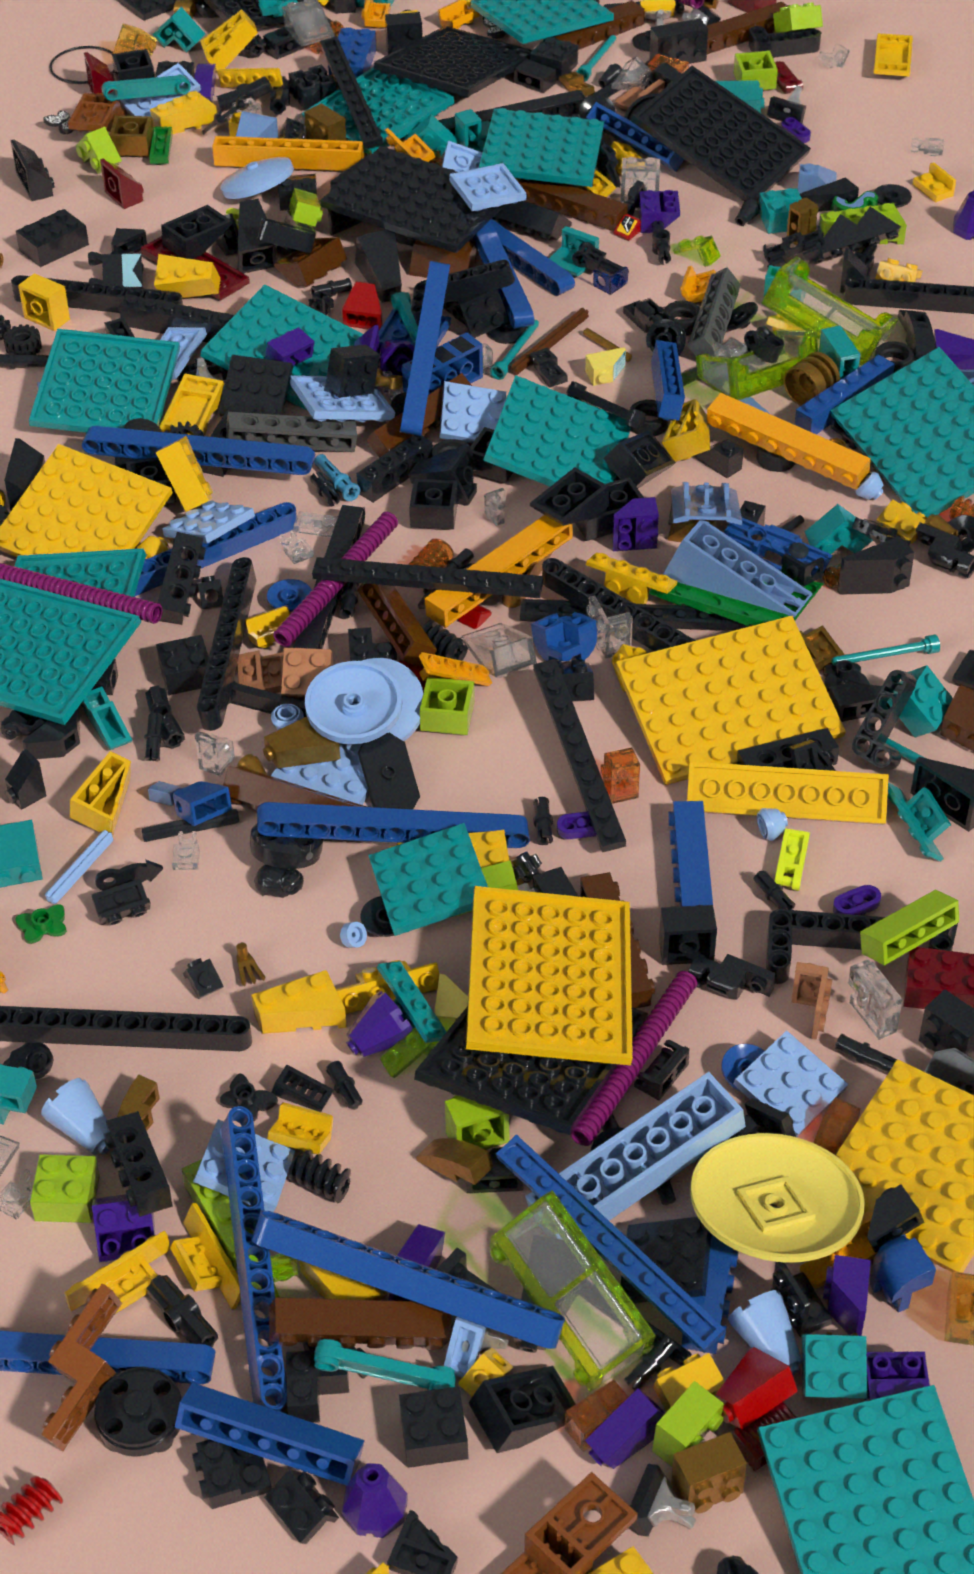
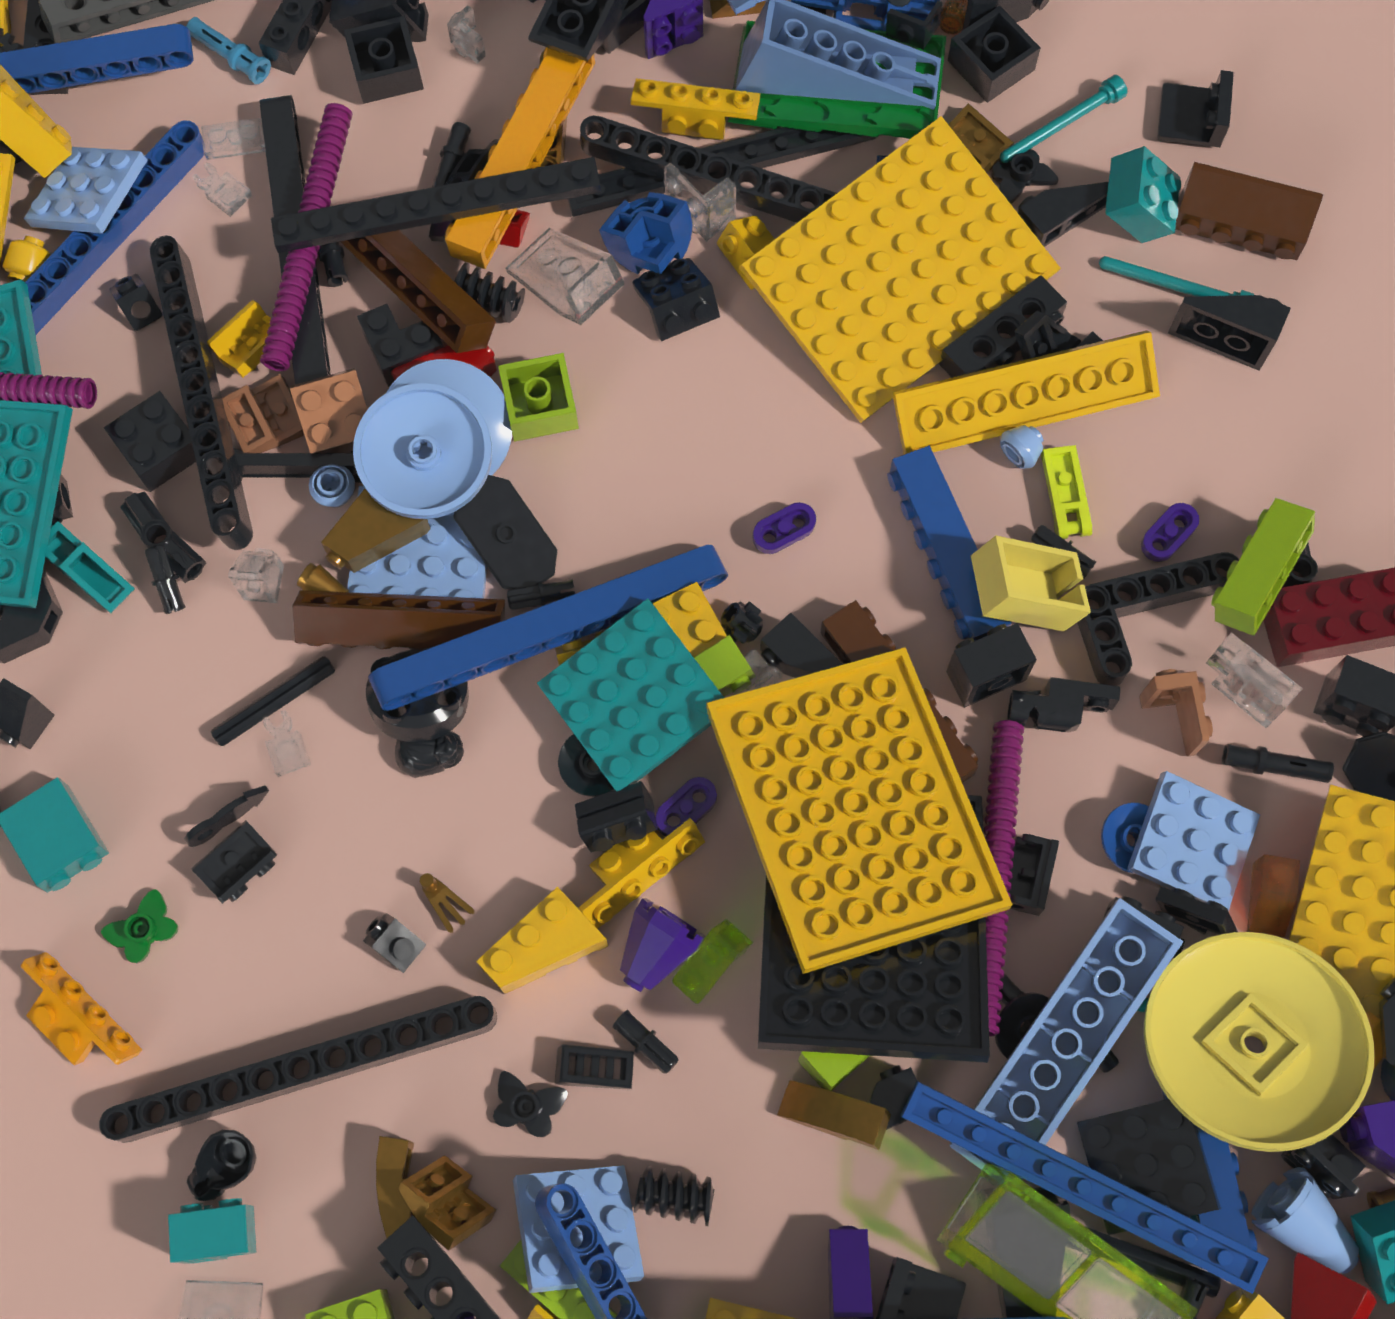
camera: 20 degrees left, 25 degrees up
(78, 1115) = (332, 1228): light blue cone -> none
(79, 867) = (152, 820): light blue axle -> none
(102, 794) = (136, 699): yellow wedge -> none
(162, 793) = (215, 658): medium blue slope -> none
(164, 1125) = (444, 1202): none -> pearl gold slope
(184, 547) = (85, 249): black brick -> none
(201, 802) = (274, 667): blue torso -> none
(287, 593) = (244, 265): blue dish -> none
(301, 1128) = (620, 1135): yellow bracket -> none
(325, 488) = (220, 74): black pin -> none
(353, 934) = (561, 806): light blue tile -> none
(385, 946) = (616, 817): none -> black brick
(411, 1002) = (689, 897): teal bracket -> none
(434, 554) = (416, 157): clear orange piece -> none
(440, 955) = (684, 807): none -> dark purple plate
(449, 1001) = (734, 875): light yellow slope -> none
(450, 668) = (528, 342): light orange bracket -> none
(543, 821) = (732, 537): black pin -> none
(579, 756) = (744, 424): black plate -> none
(621, 775) = (810, 439): clear orange brick -> none
(735, 892) = (1023, 581): none -> light yellow piece
(851, 601) = (993, 53): none -> black brick
(888, 719) = (1117, 241): black beam -> none
(922, 816) = (1205, 374): teal bracket -> none

